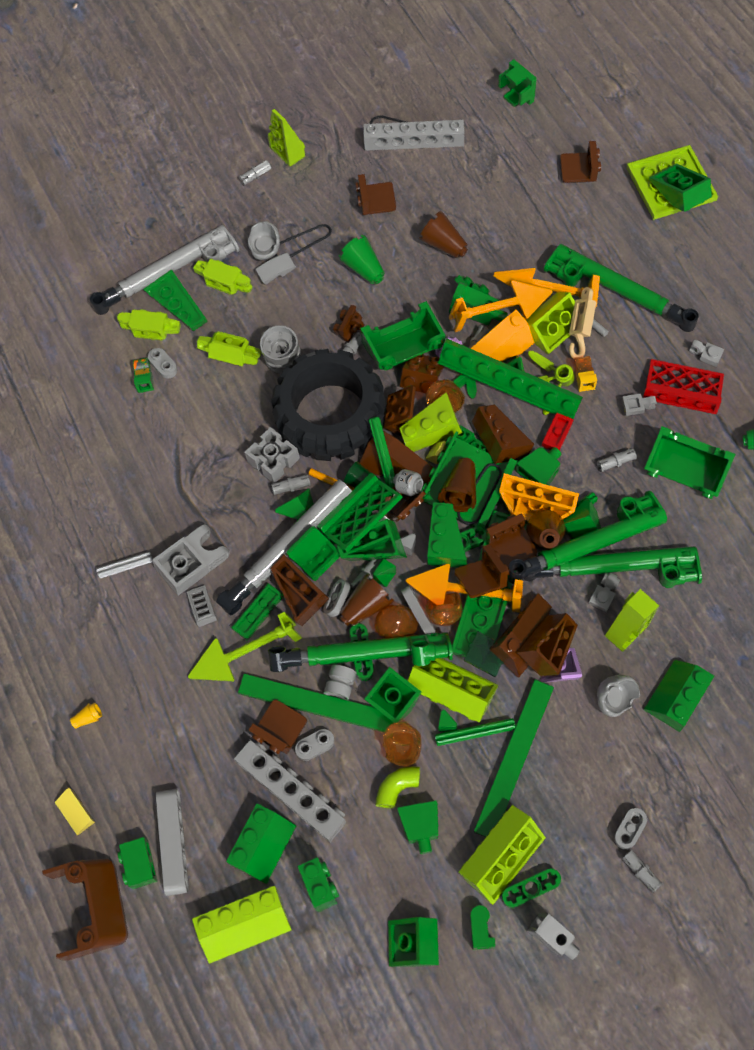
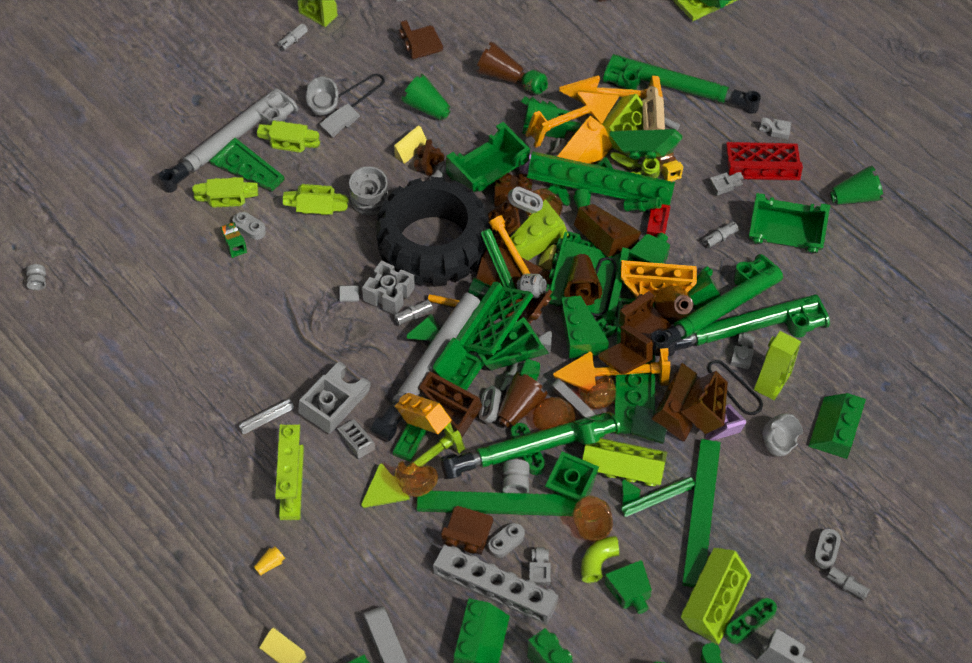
camera: 20 degrees left, 10 degrees down
(125, 631) = (289, 472): none -> lime fence
(236, 451) = (349, 293): none -> light grey slope
(241, 664) = (415, 479): none -> clear orange piece
(263, 599) = (423, 413): none -> light orange brick
(332, 307) = (407, 147): none -> light yellow slope
(336, 786) = (539, 571): none -> light grey plate
(391, 412) = (499, 226): none -> light orange piece
(422, 390) = (524, 198): none -> light grey plate
(475, 260) = (535, 82): none -> green head
(487, 395) = (582, 198): none -> green cone
(545, 413) = (642, 204): none -> green pin
(563, 350) = (647, 142): none -> green wedge
(596, 627) = (739, 379): none -> black piece

